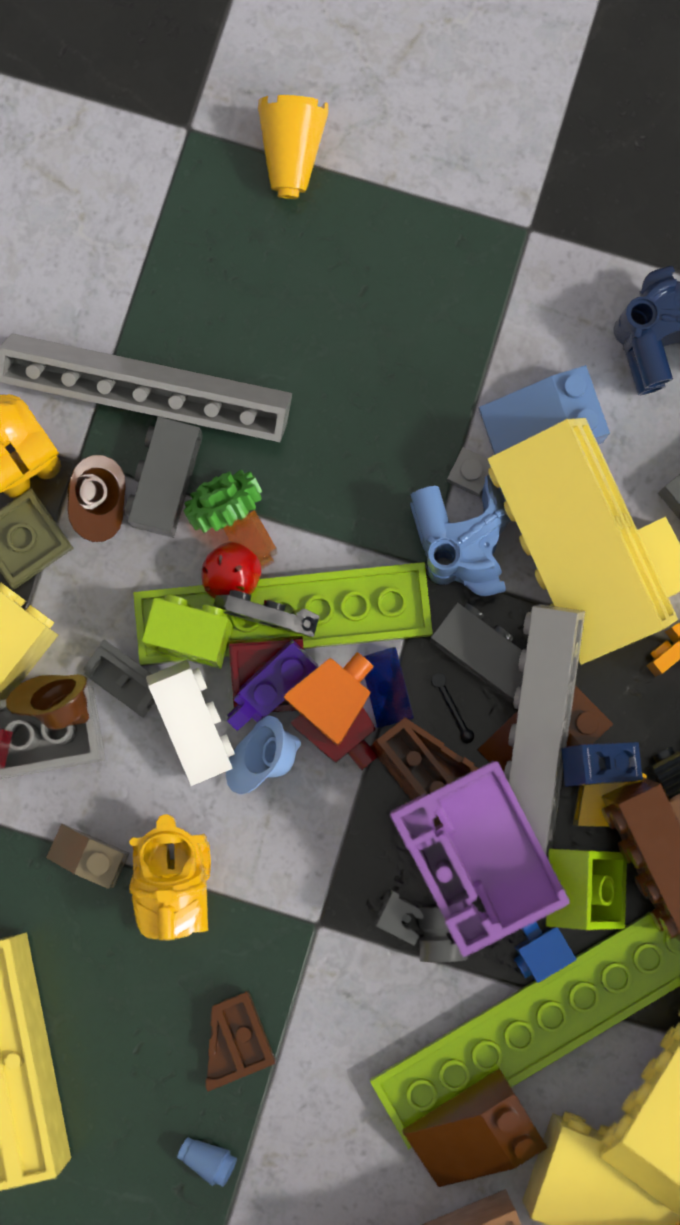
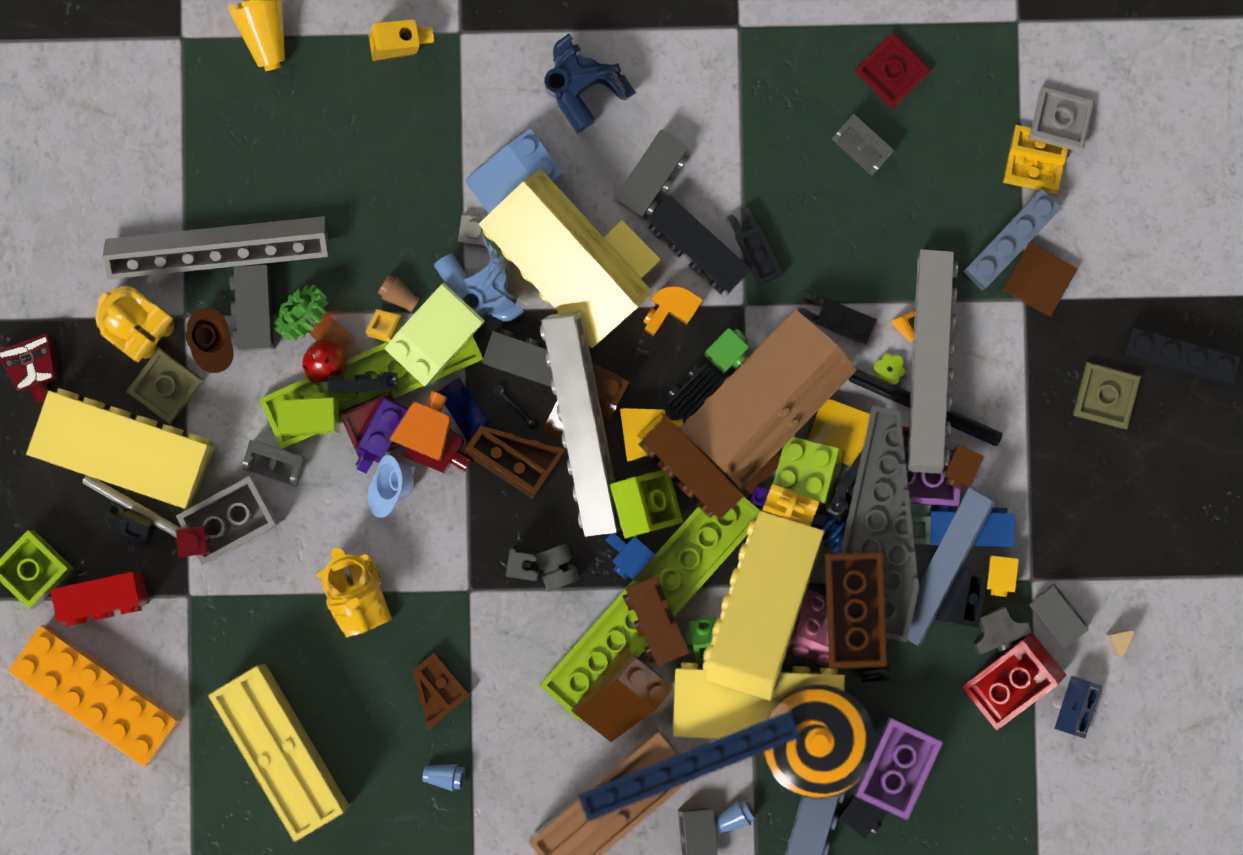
camera: 10 degrees left, 5 degrees up
(52, 699) = (229, 494): reddish brown piece -> none
(87, 856) = (290, 596): dark tan slope -> none
(191, 721) = (331, 478): white brick -> none
(321, 552) = (384, 325): none -> yellow tile
(351, 518) = (398, 293): none -> medium nougat cone
(384, 581) = (434, 335): none -> yellowish green slope
(453, 206) = (386, 39): none -> yellow torso
(481, 852) = (559, 502): medium lavender piece -> none
(552, 1049) = (655, 621): none -> reddish brown wedge
(601, 764) = (627, 413): dark blue piece -> none
(605, 1093) = (700, 636): none -> bright green brick

